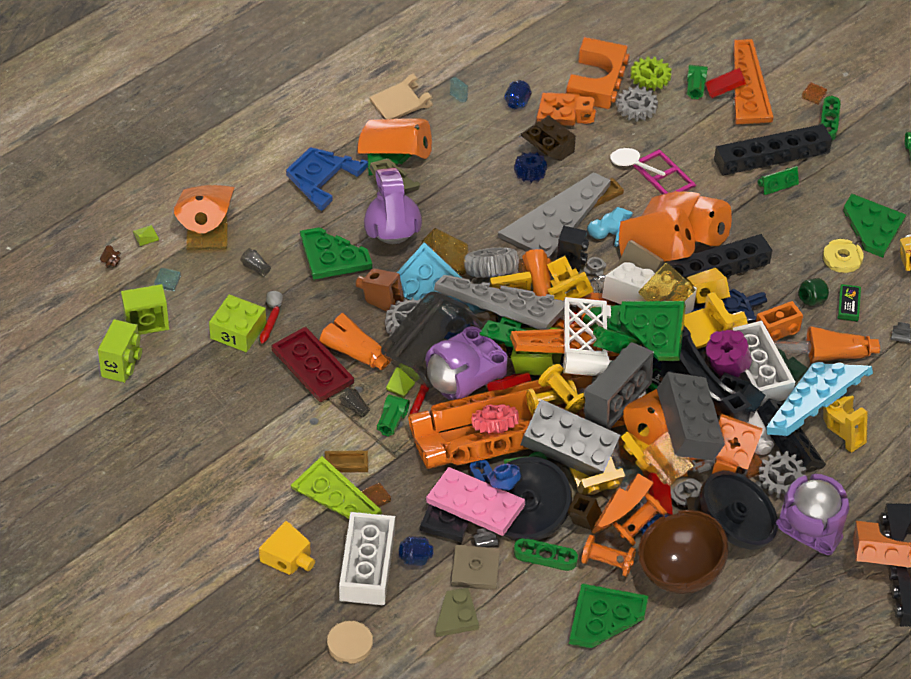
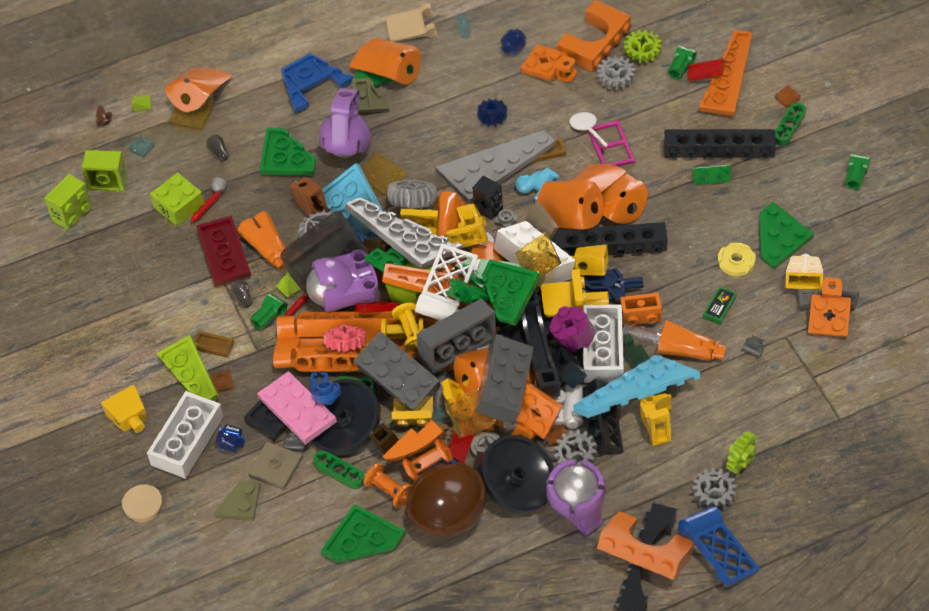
camera: 25 degrees right, 5 degrees up
(551, 138) = (519, 90): dark brown slope -> none
(813, 291) = (689, 287): dark green head -> none

